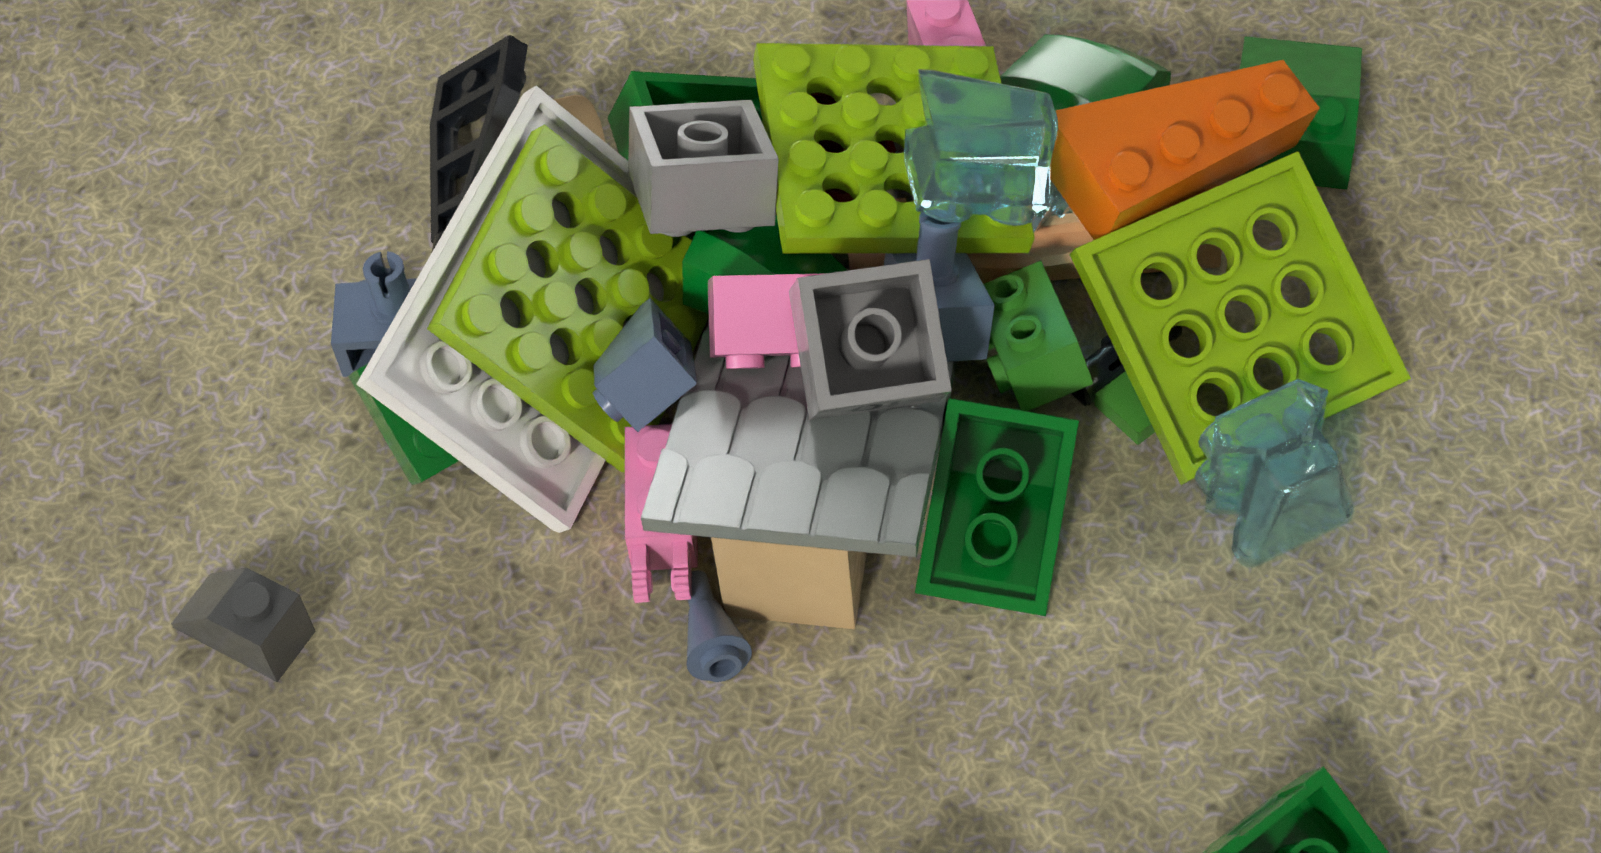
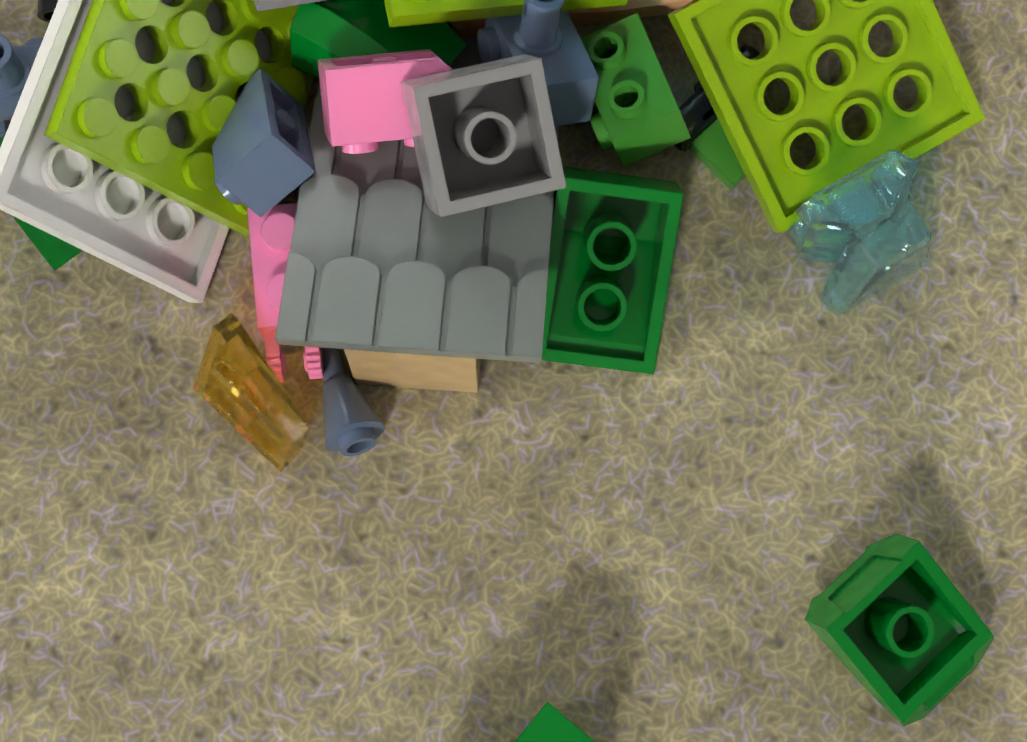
camera: 10 degrees left, 20 degrees up
(610, 609) = (249, 395): none -> clear yellow wing

